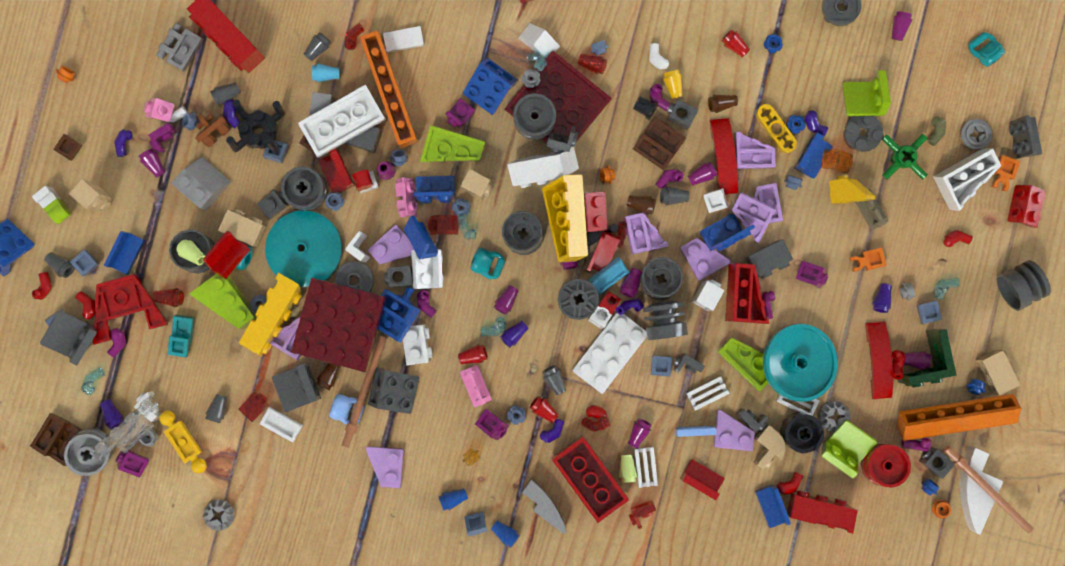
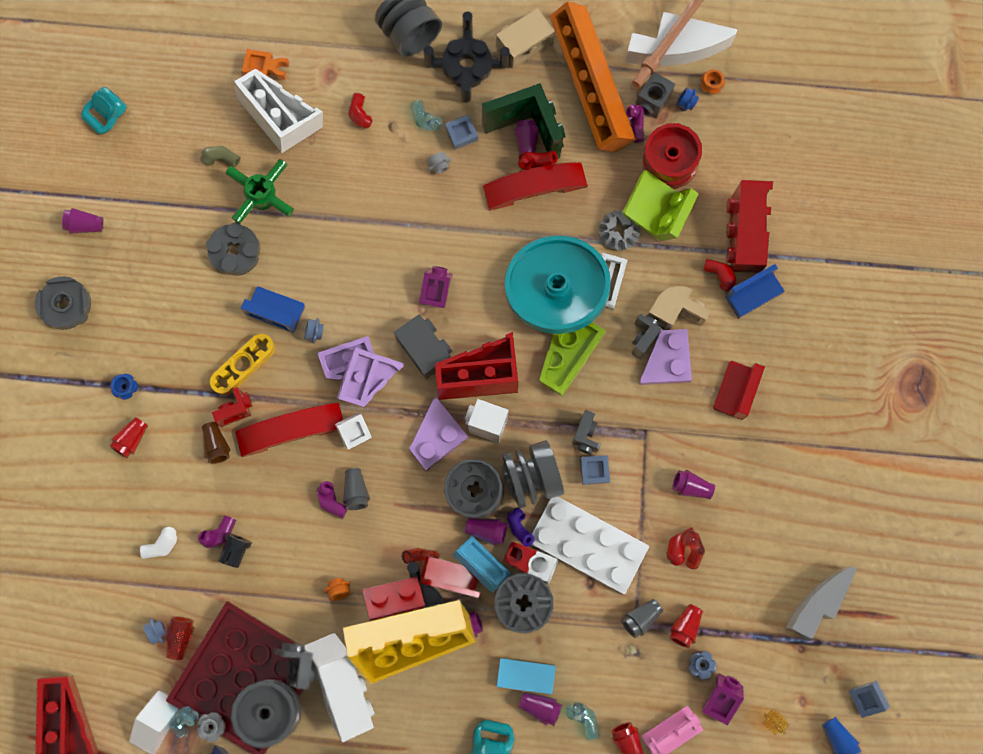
camera: 100 degrees left, 10 degrees down
(506, 534) = (873, 653): blue cone -> none
(513, 334) = (589, 689): dark purple cone -> none
(516, 224) = (428, 712): dark grey wheel -> none
(528, 293) = (526, 676): none -> medium azure tile
(553, 434) = (717, 605): dark purple arm -> none
(590, 478) = (771, 545): red brick -> none
(627, 469) = (748, 493): yellowish green cone -> none
(642, 203) = (372, 533): reddish brown cone -> none
(642, 234) = (416, 525): lavender wing -> none
(645, 510) = (798, 461): clear red bracket -> none
(654, 474) = (759, 462): white tile -> none
(659, 143) = (283, 522): reddish brown slope -> none
(673, 82) = (195, 515): yellow cone -> none
(689, 110) = (232, 486): dark grey brick -> none
(695, 431) = (675, 409): light blue tile -> none
(702, 174) = (318, 454): magenta cone -> none
(722, 386) = (627, 393): white tile -> none
(724, 233) = (397, 411): blue bracket -> none
(742, 115) = (231, 412): none -> red bracket
(753, 154) = (281, 390): lavender wing -> none
(767, 297) = (476, 341): magenta arm -> none
(791, 124) = (240, 339): blue plate -> none
(810, 425) = (664, 271): black brick -> none
(813, 124) = (230, 316): dark purple arm -> none
(837, 160) = (276, 277): clear orange bracket -> none
(848, 191) = (315, 255): yellow slope -> none
(867, 97) = (184, 249): lime bracket -> none
(870, 259) = (403, 215): orange plate -> none
(872, 213) = (336, 225): dark tan hinge -> none
(882, 300) = (455, 192): dark purple cone -> none
(976, 387) = (548, 61): blue plate -> none
(979, 126) = (208, 104): light grey gear -> none
(996, 328) = (467, 48): none -> black plate
(1025, 137) = (214, 47): dark grey bracket -> none
(1026, 205) = (304, 34): red bracket -> none

